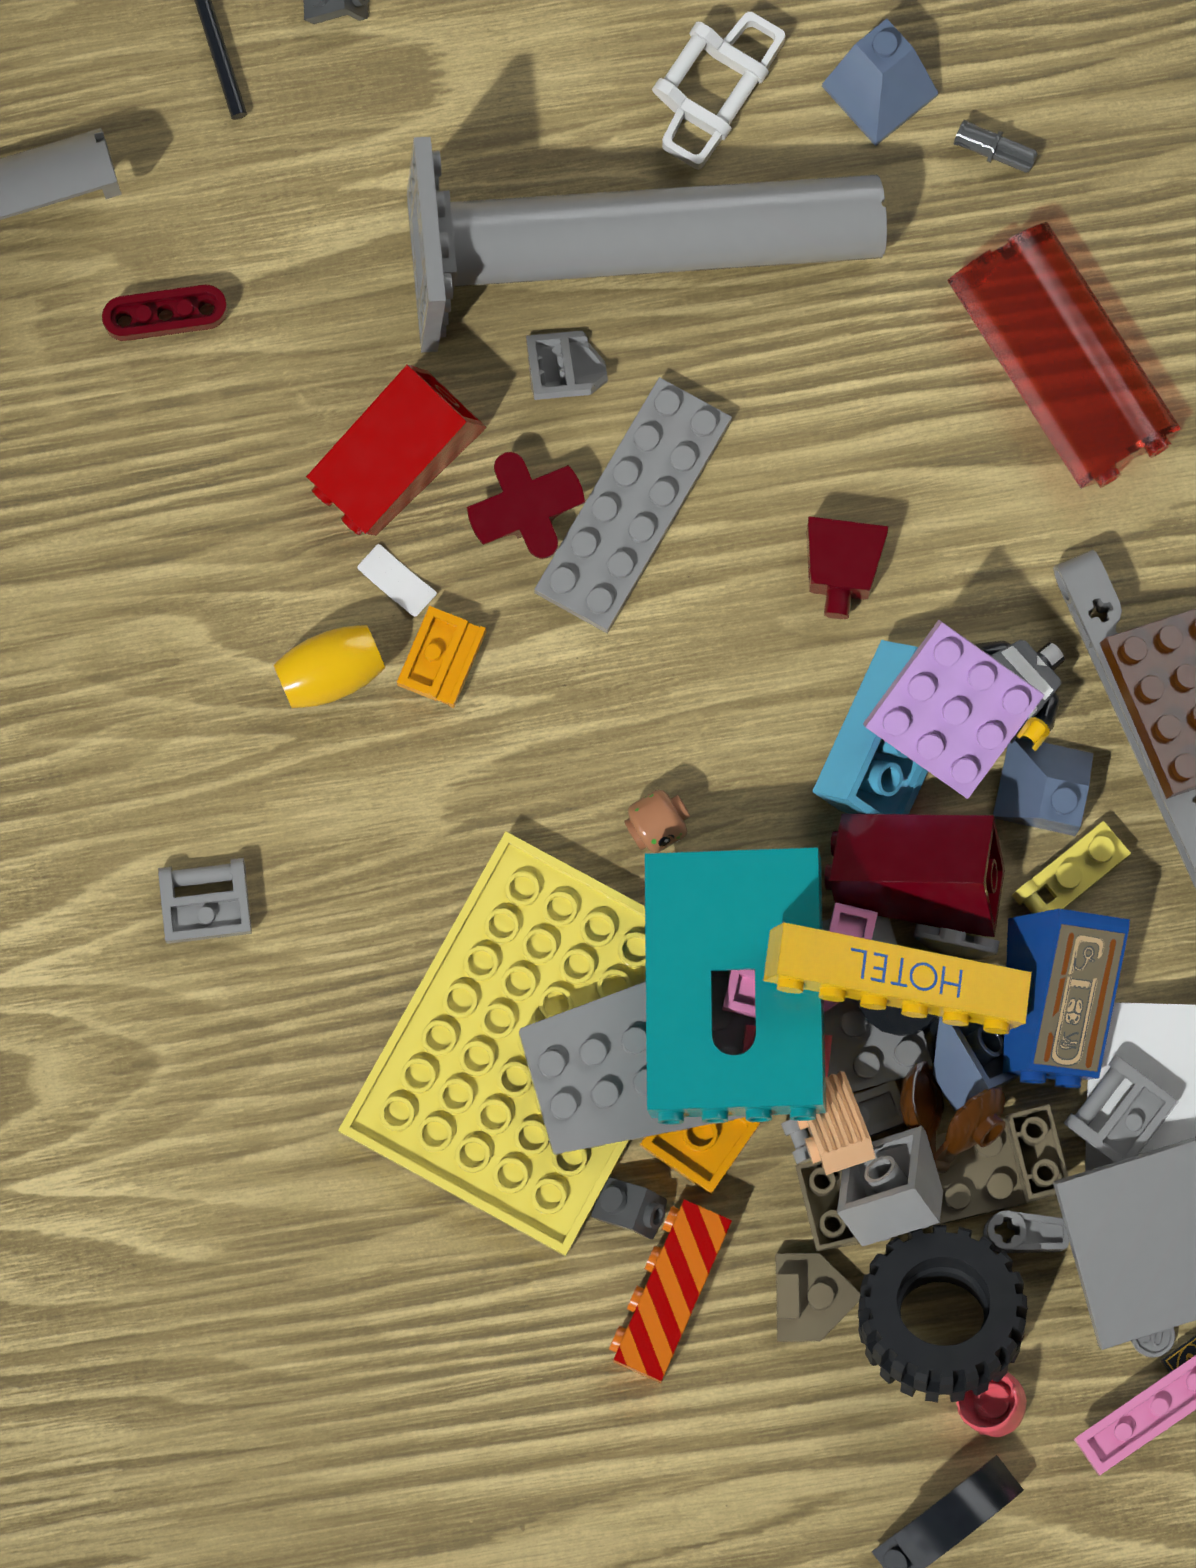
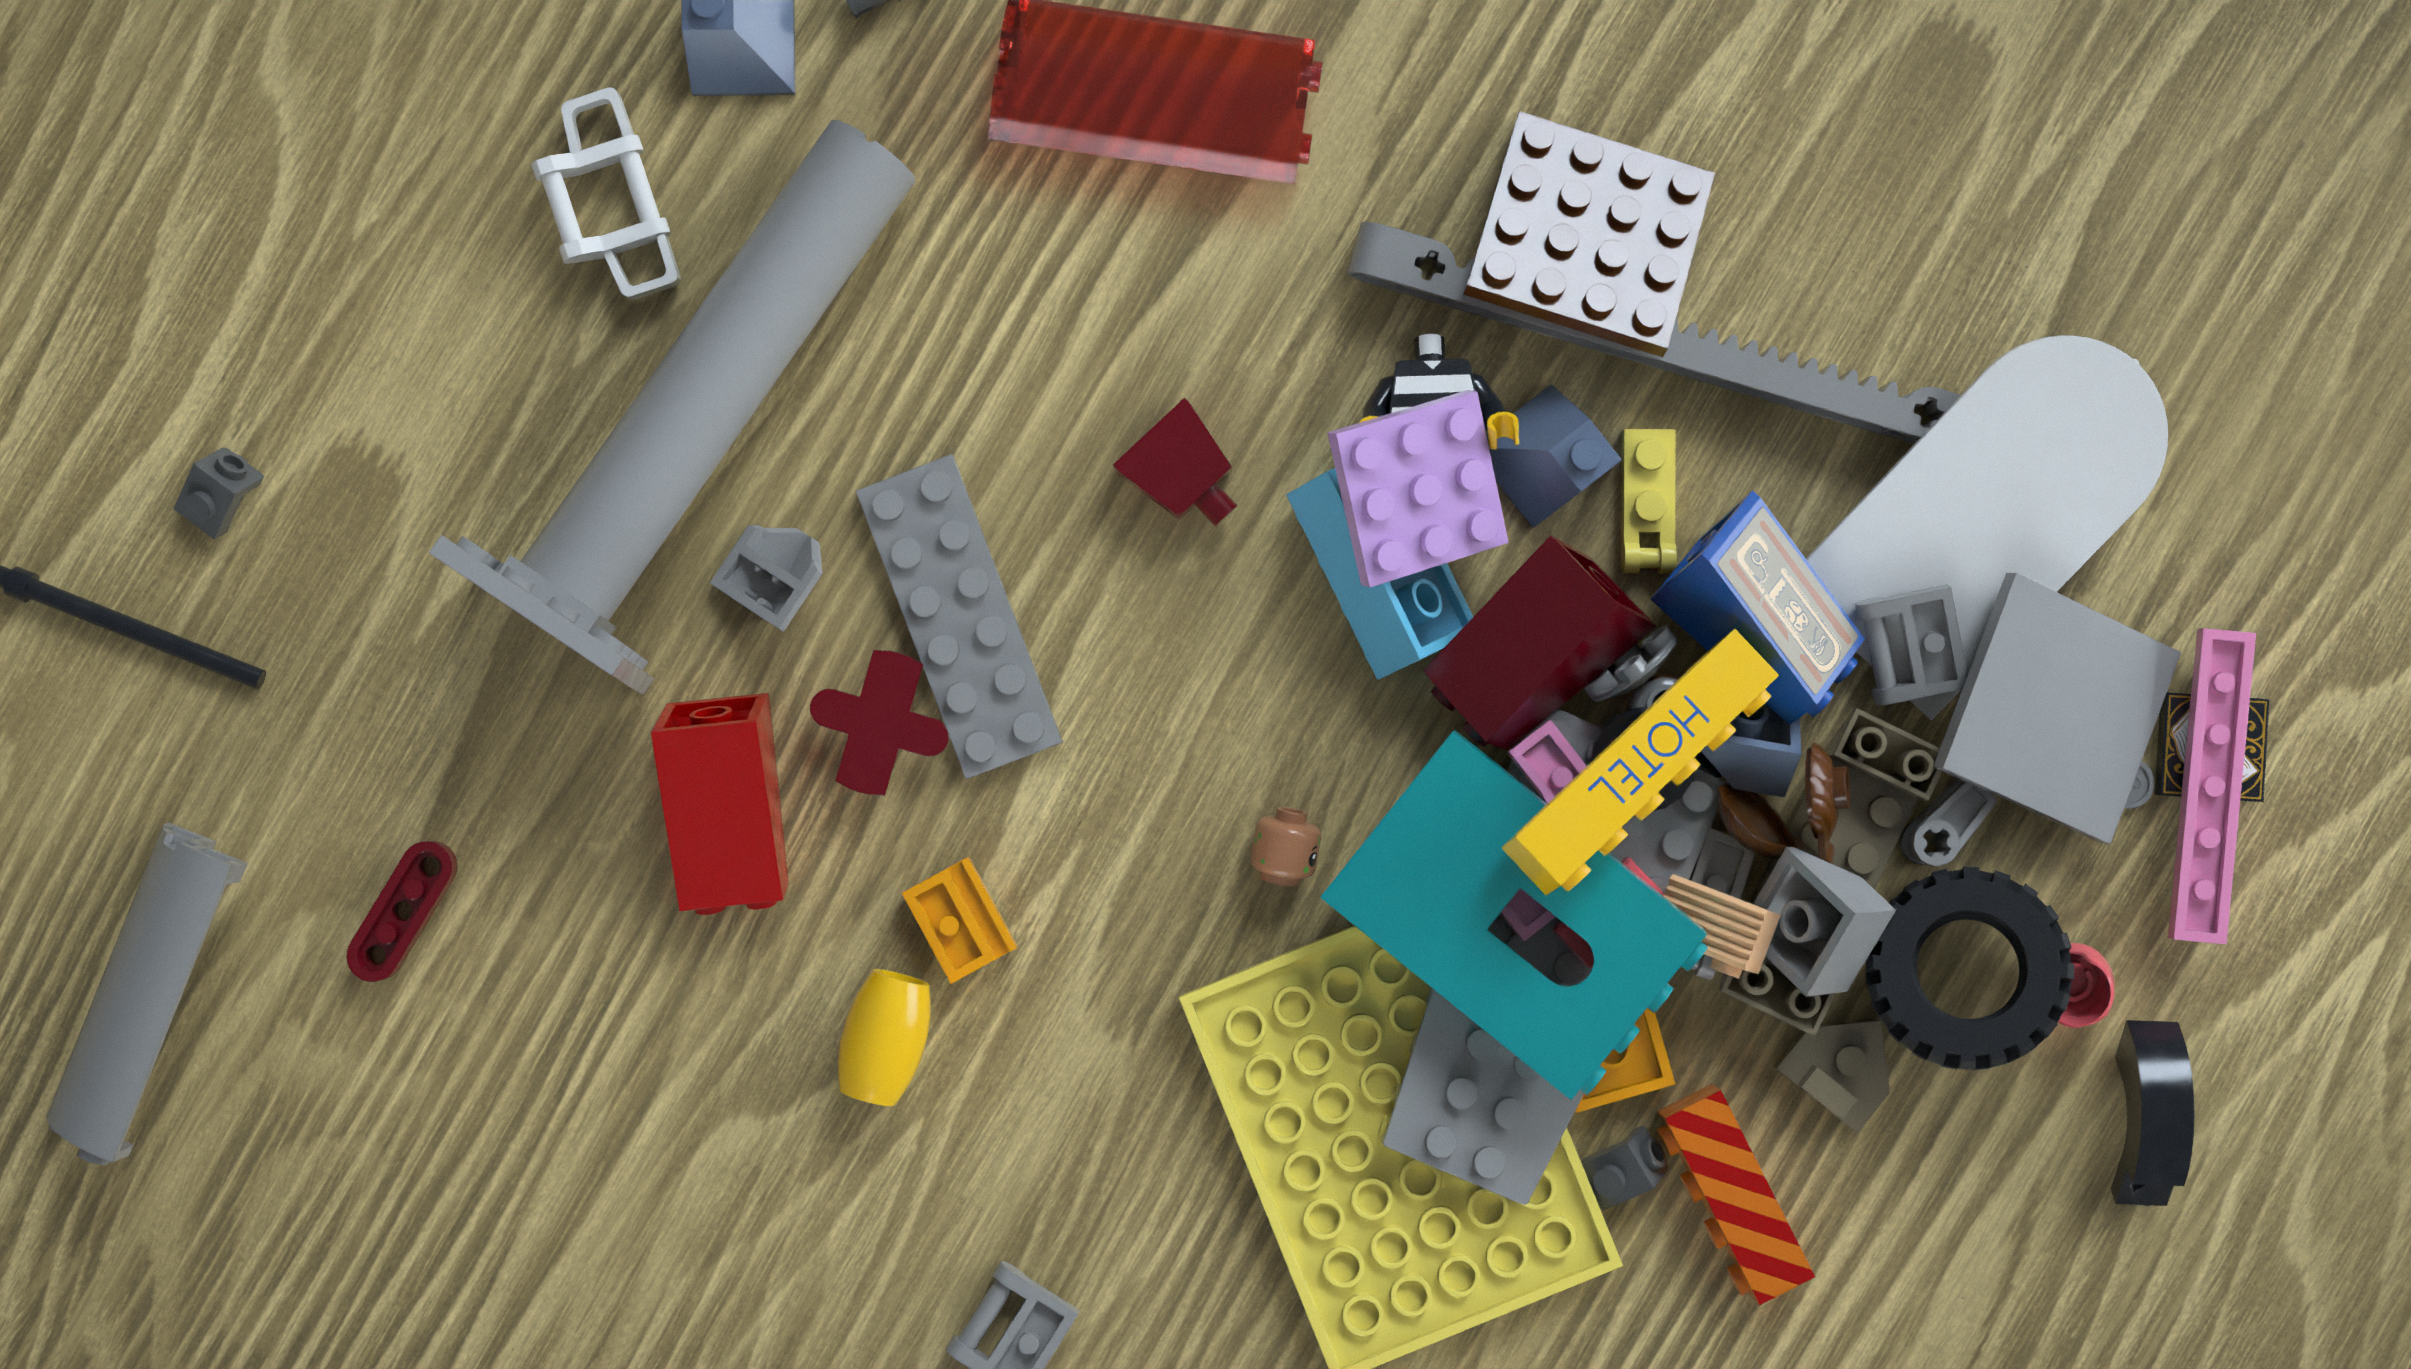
camera: 55 degrees left, 10 degrees up
(396, 580) = (849, 899): white sticker -> none

